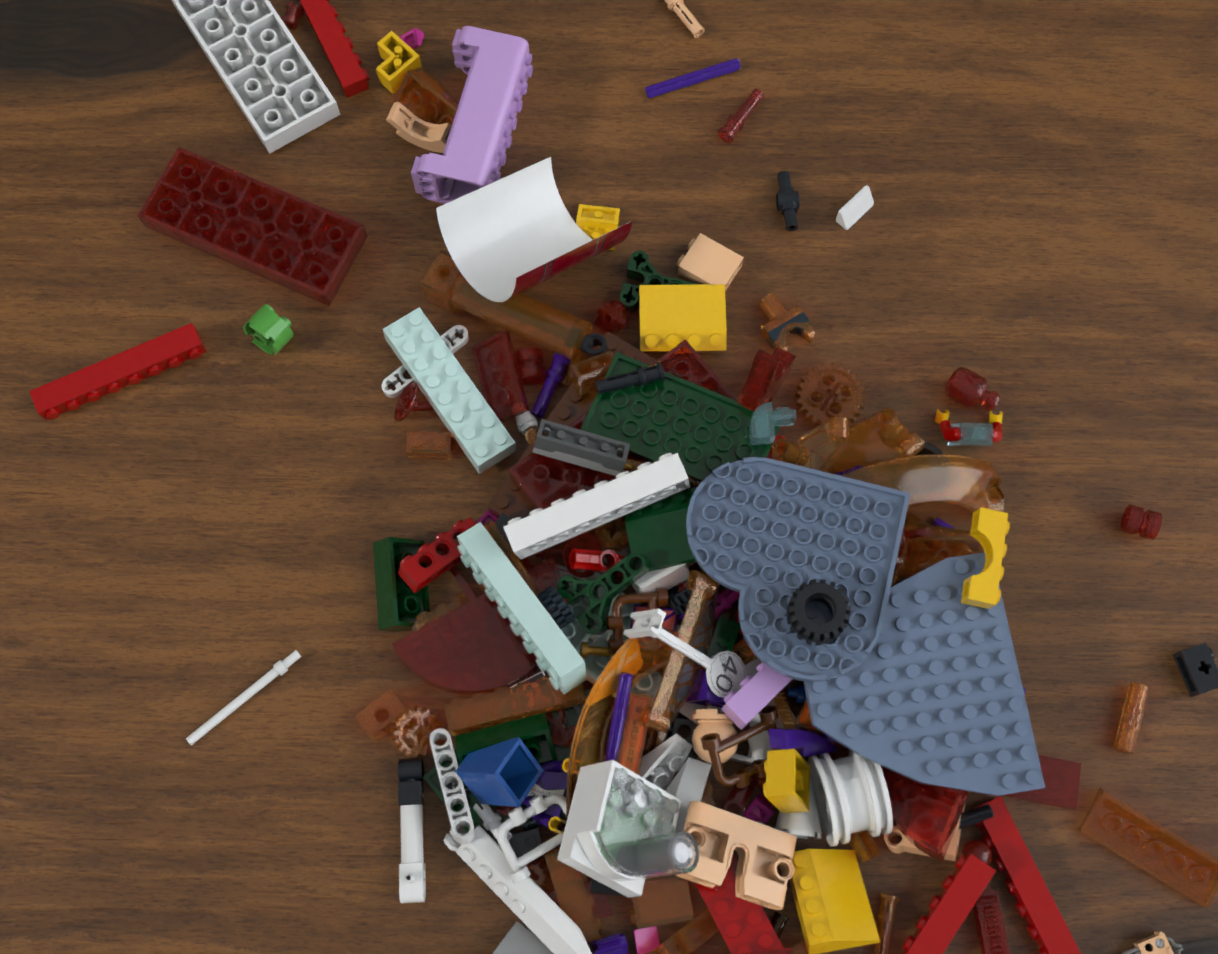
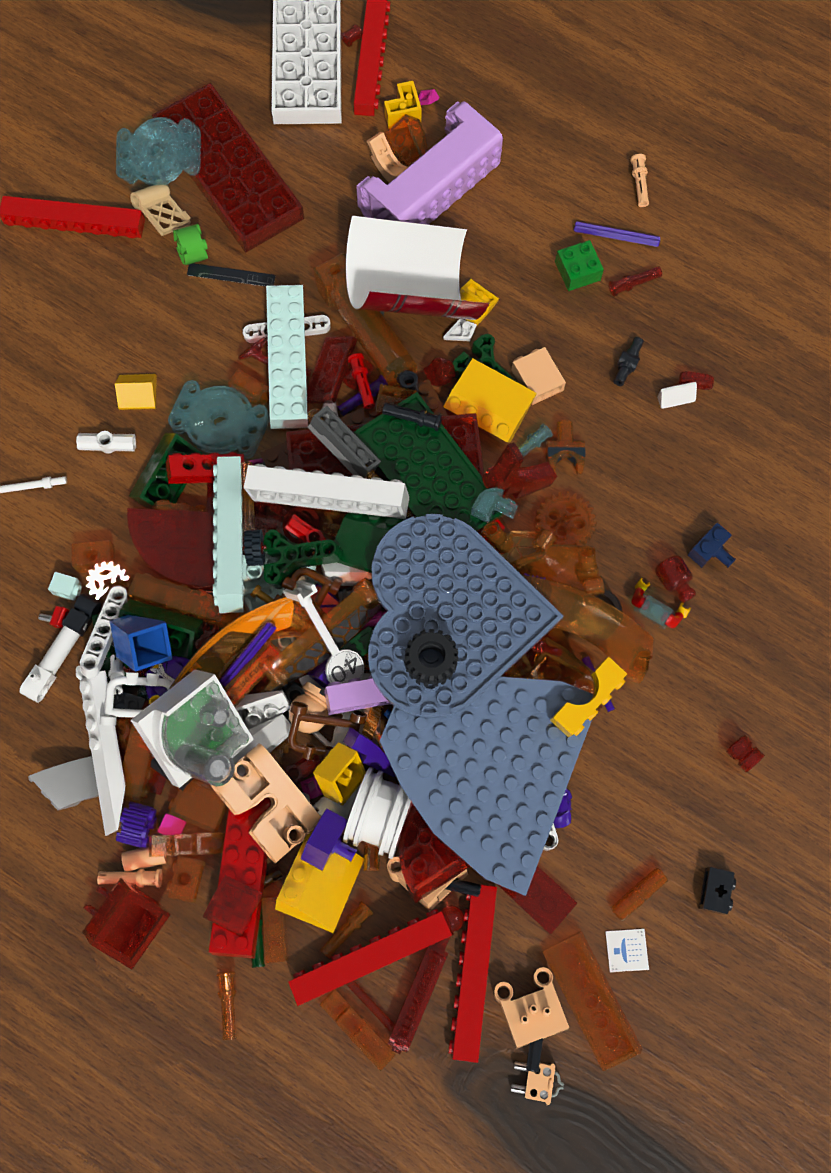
camera: 30 degrees right, 0 degrees up
(191, 255) = (177, 147): none -> clear light blue piece
(194, 304) = (153, 198): none -> tan piece
(303, 594) = (95, 442): none -> white piece
(311, 516) = (136, 391): none -> yellow slope
(329, 337) = (232, 275): none -> black sticker
(374, 764) = (65, 586): none -> light aqua brick
(388, 803) = (57, 618): none -> red piece
(416, 474) = (215, 403): none -> clear light blue piece
(537, 365) = (360, 373): none -> red pin
(604, 264) = (461, 331): none -> white piece
(678, 131) = (579, 265): none -> green brick
(747, 335) = (534, 440): none -> clear light blue pin
(818, 855) = (326, 841): none -> dark purple brick
(872, 179) = (703, 381): none -> clear red beam
(983, 339) = (712, 546): none -> dark blue brick
(1112, 898) = (533, 1017): none -> light nougat piece
(1153, 779) = (627, 950): none -> white sticker

